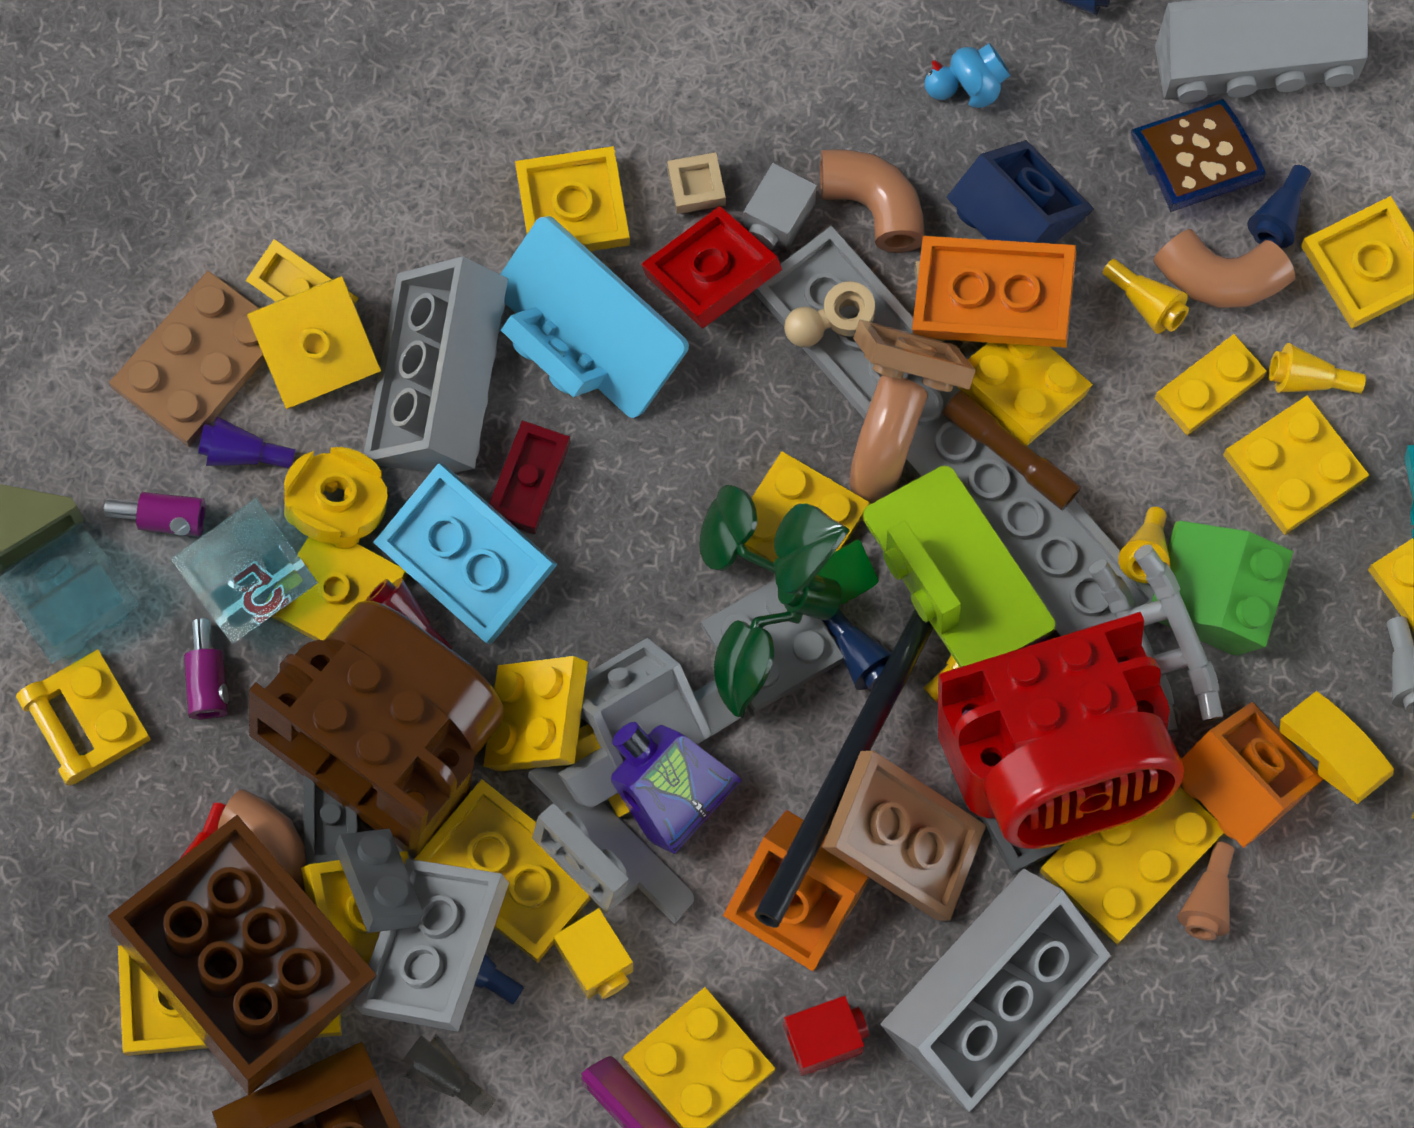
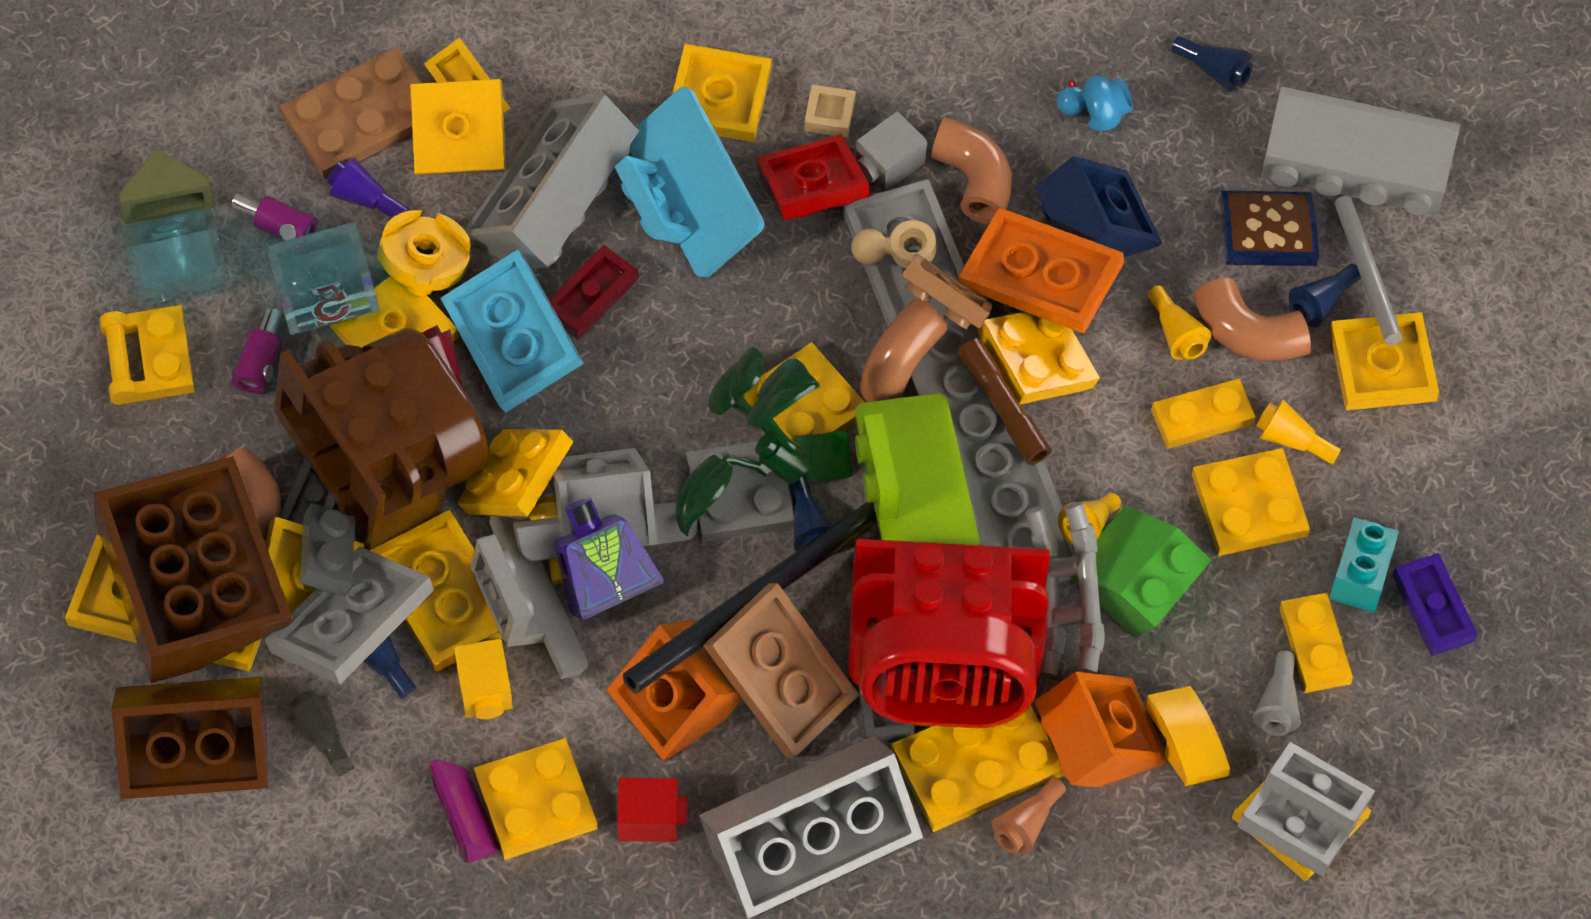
camera: 20 degrees right, 10 degrees down
(1319, 168) = (1368, 271): none -> light grey bar

